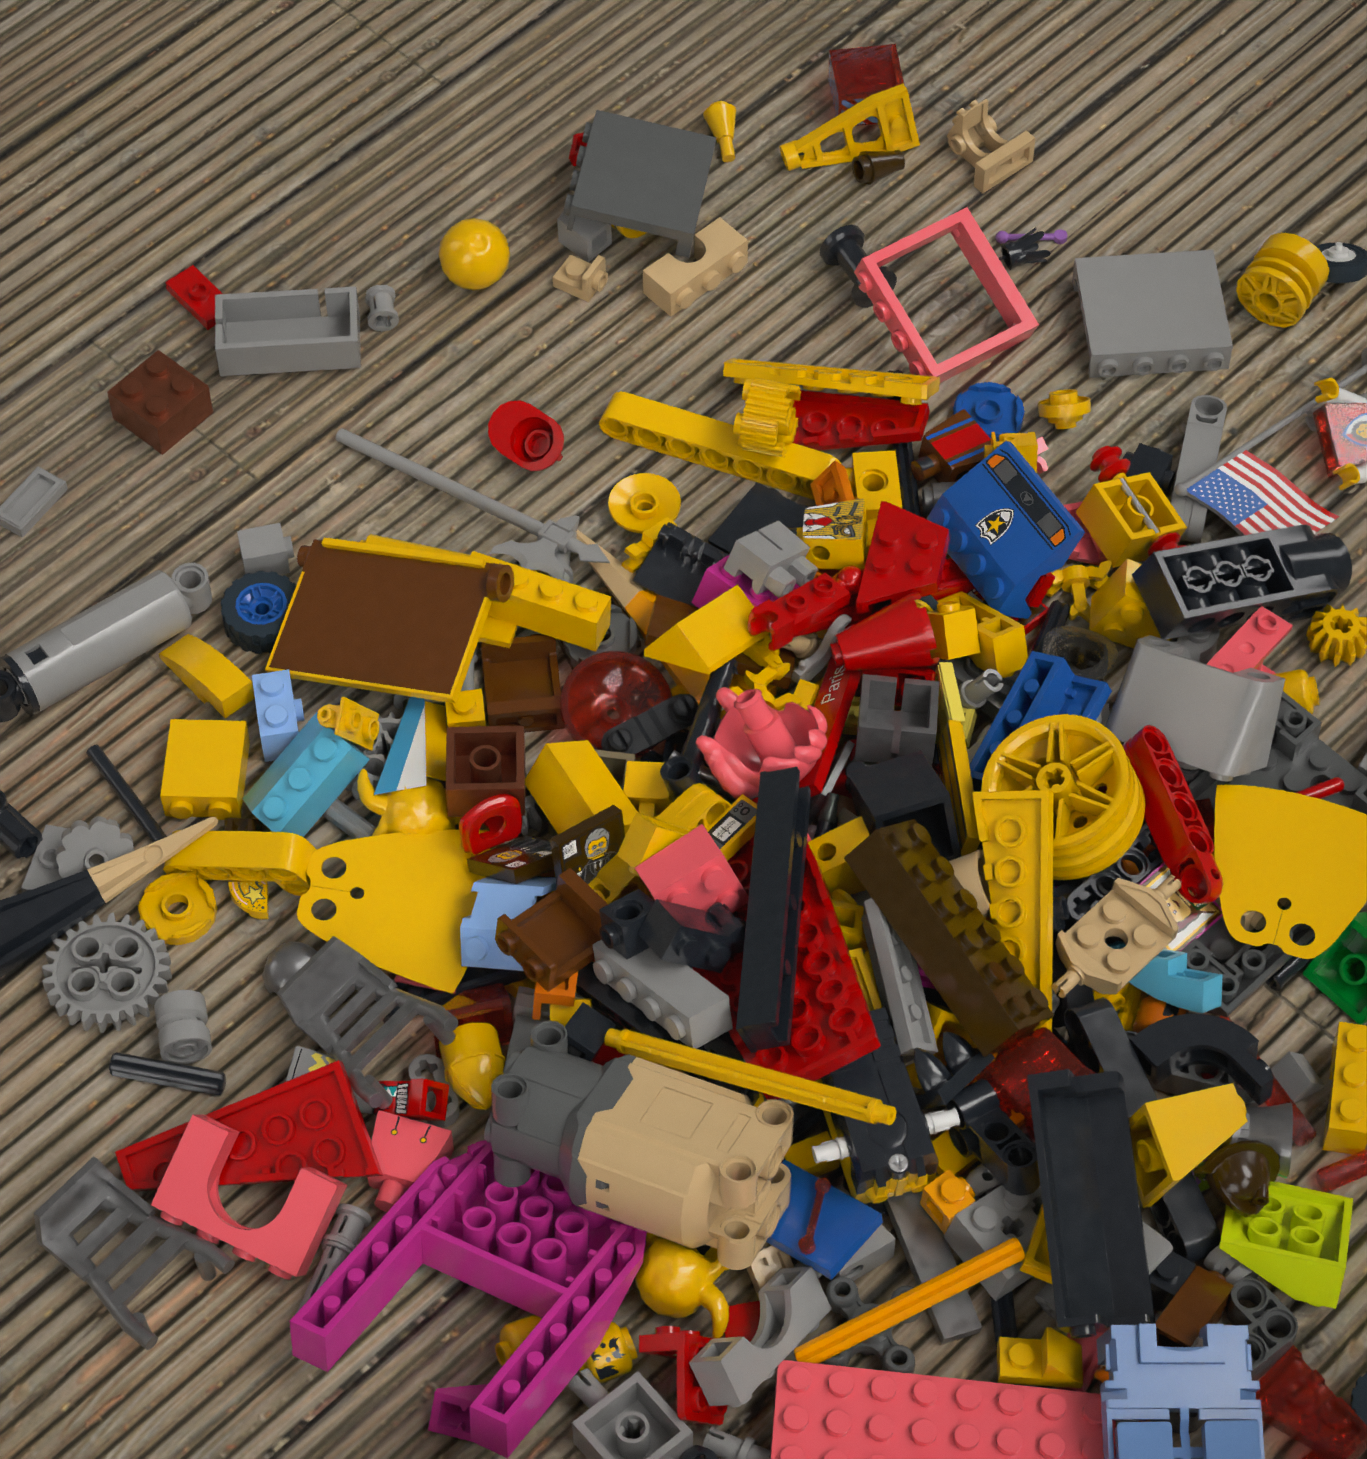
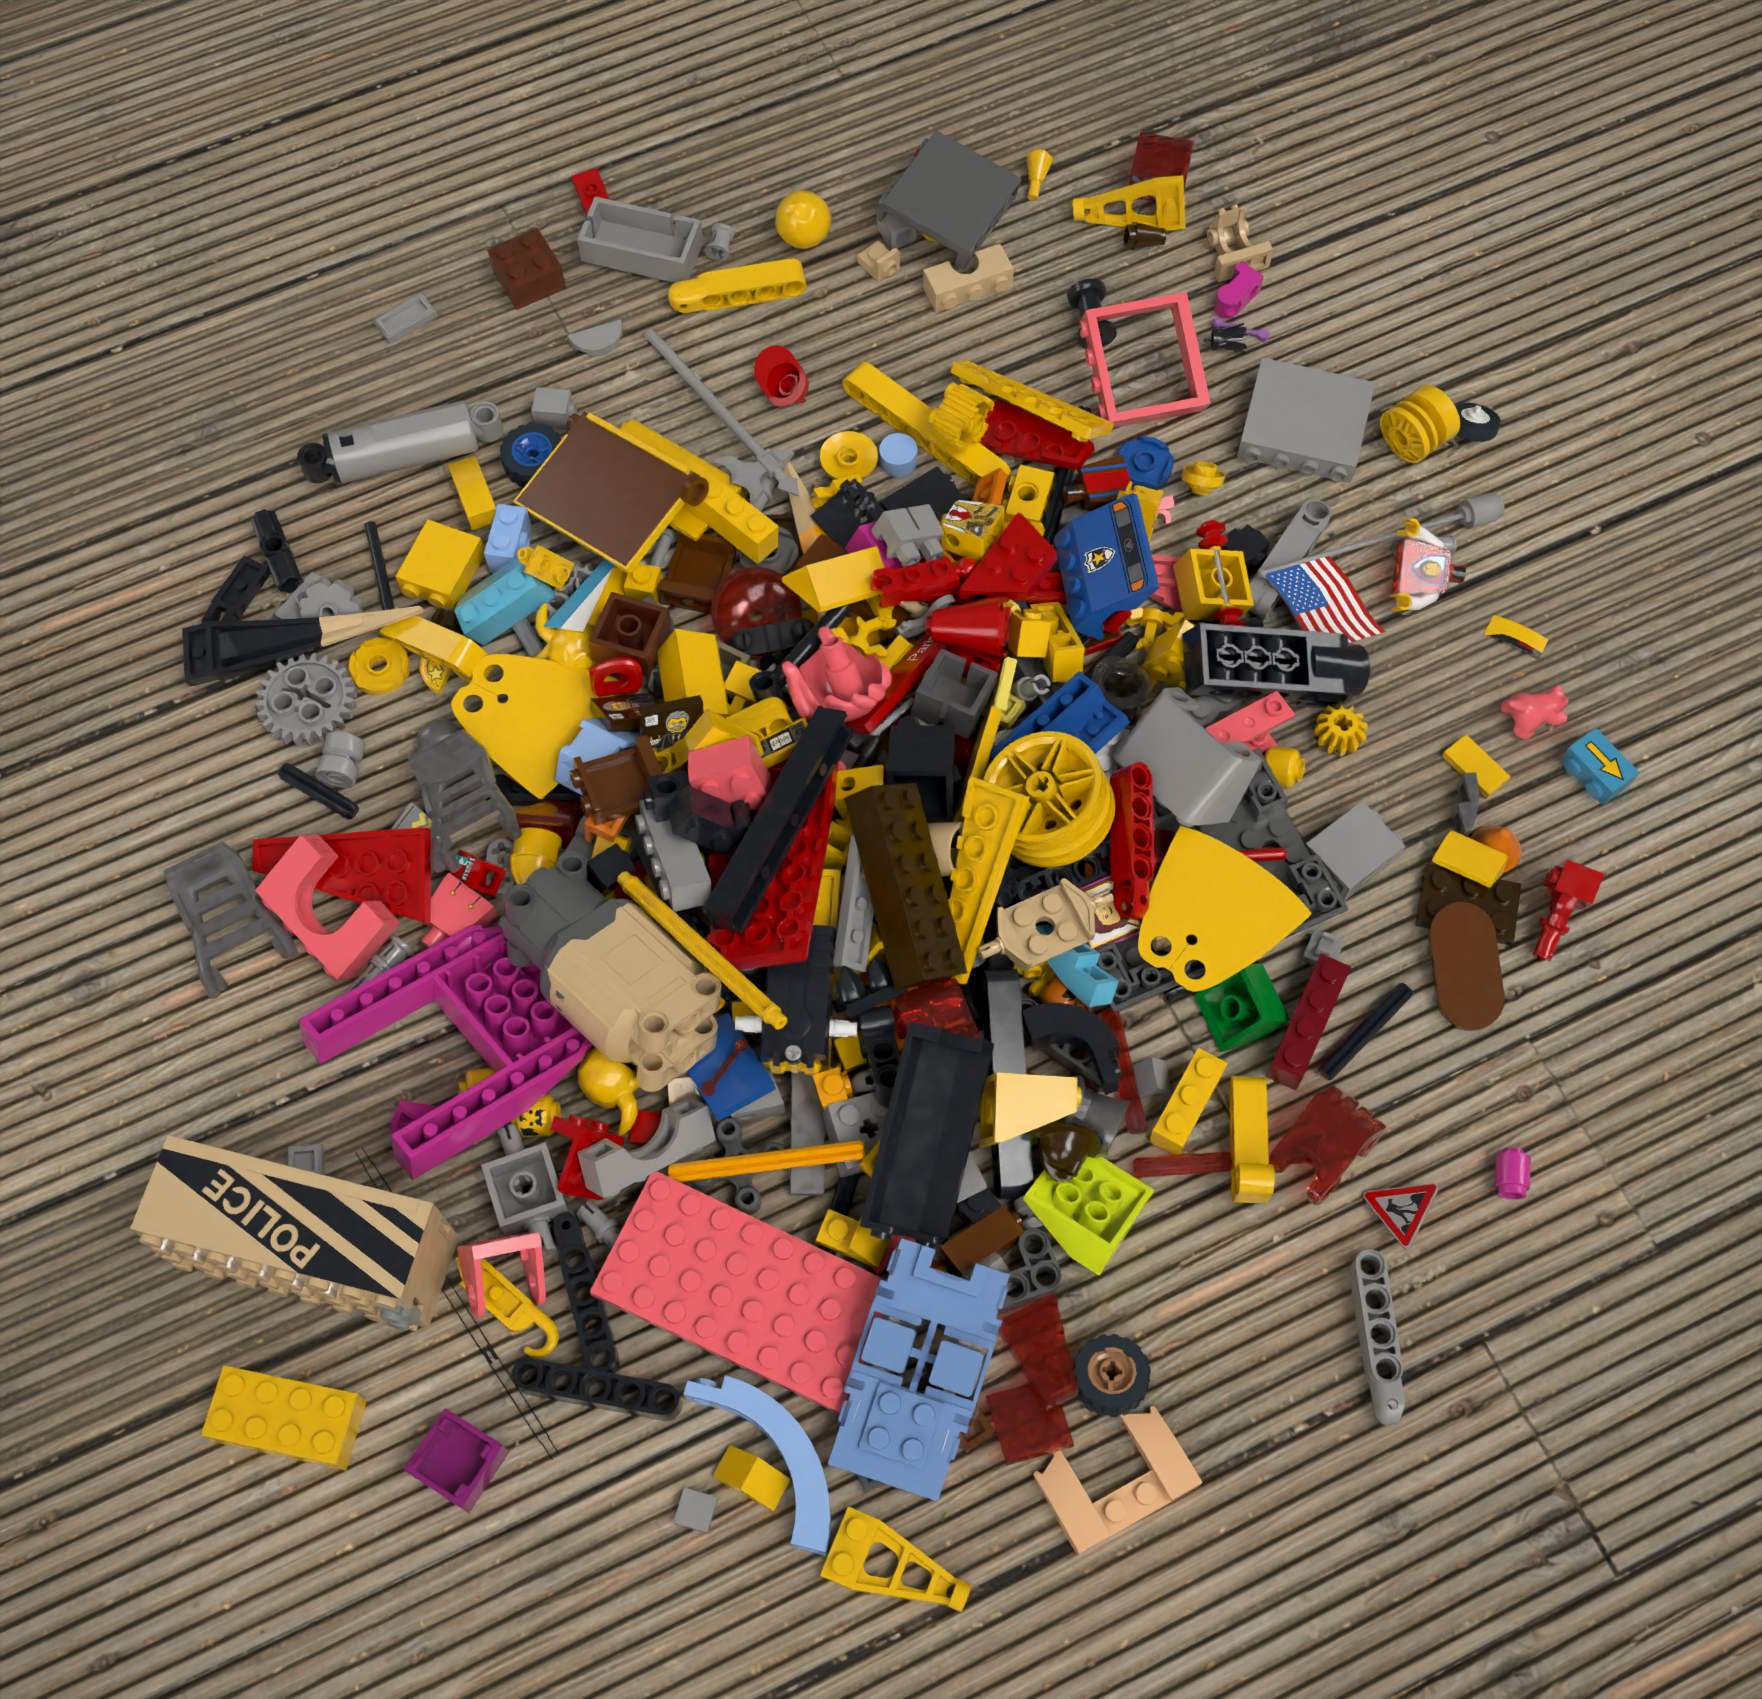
camera: 20 degrees right, 10 degrees up
(280, 459) = (598, 339): none -> light grey tile
(427, 351) = (739, 286): none -> yellow piece
(701, 485) = (898, 454): none -> light blue piece
(1013, 195) = (1239, 292): none -> dark pink leg

